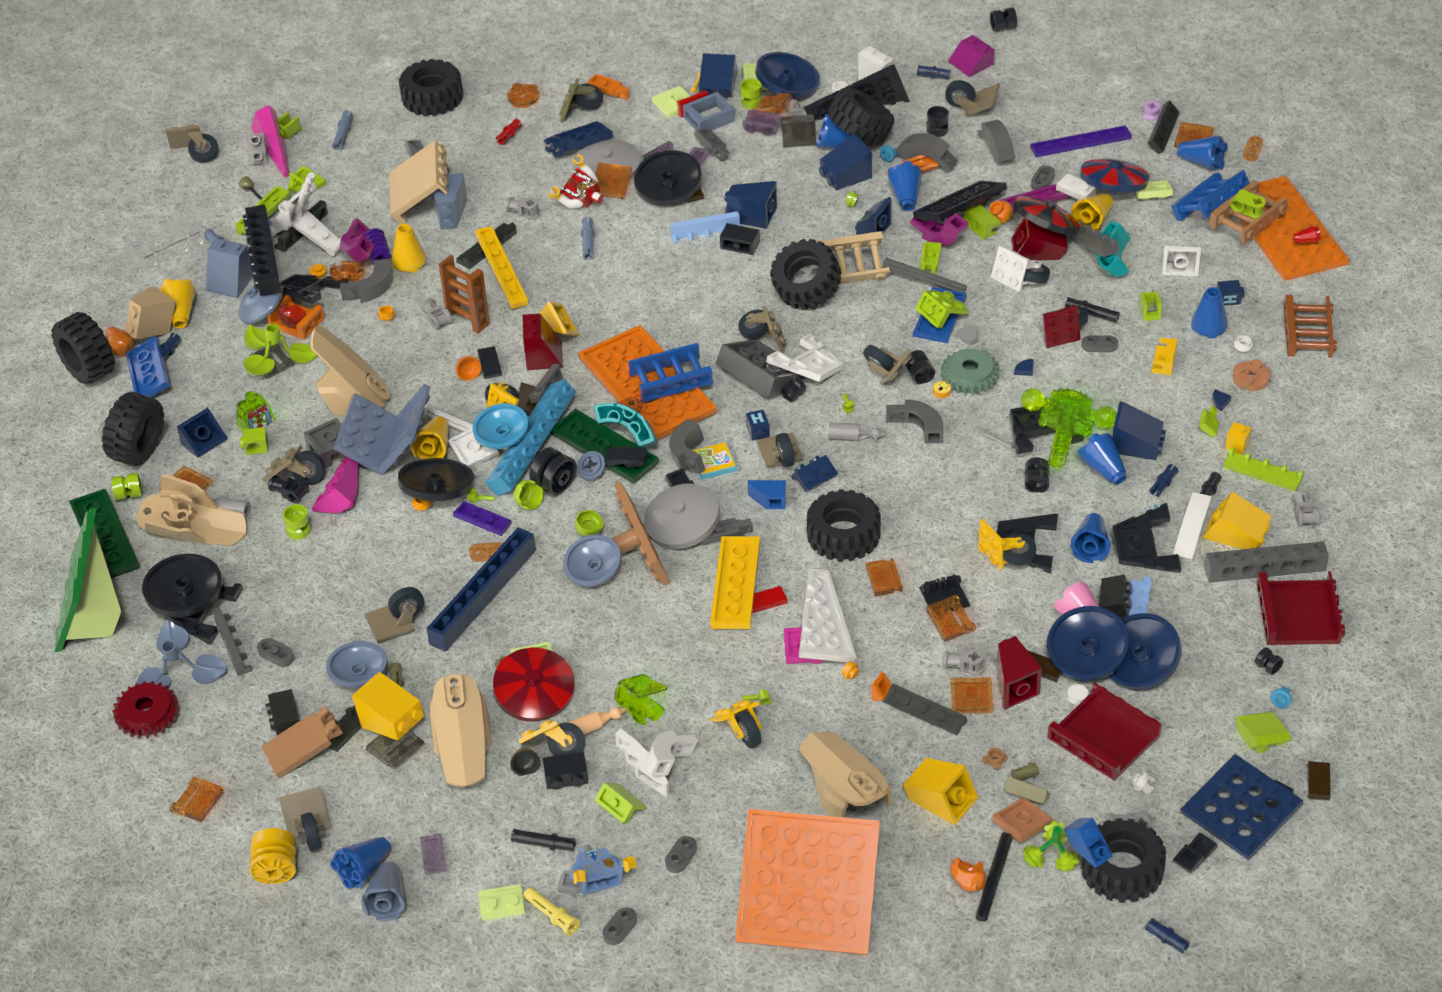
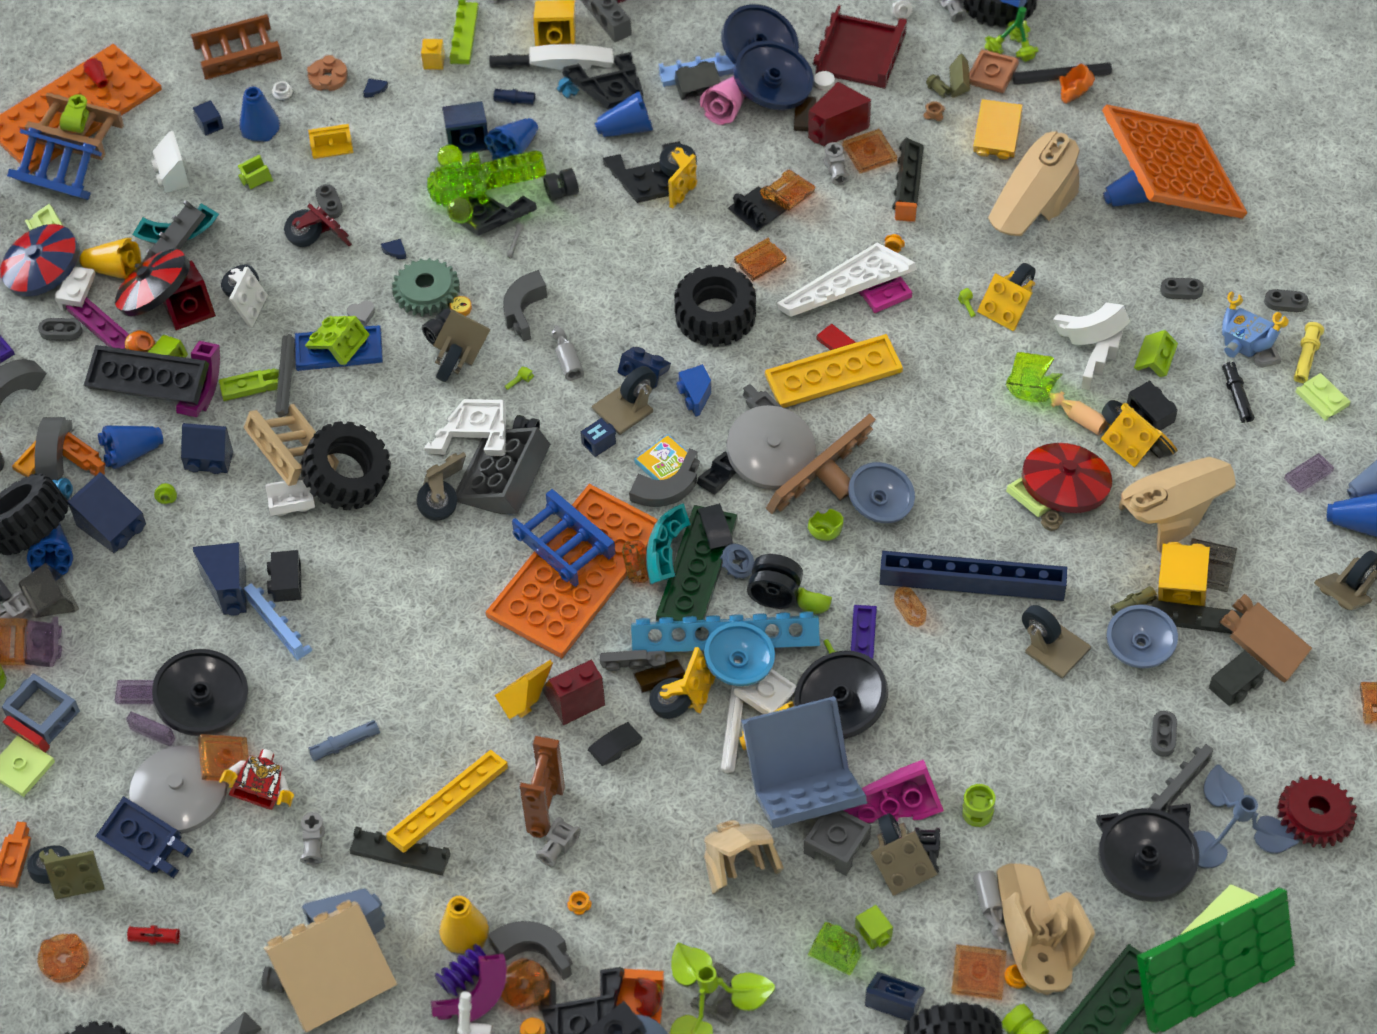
camera: 115 degrees left, 10 degrees up
(468, 368) = (637, 760): orange piece -> none
(713, 143) = (101, 680): dark grey hinge -> none
(1094, 310) = (278, 221): black pin -> none
(1208, 421) = (419, 84): lime plate -> none

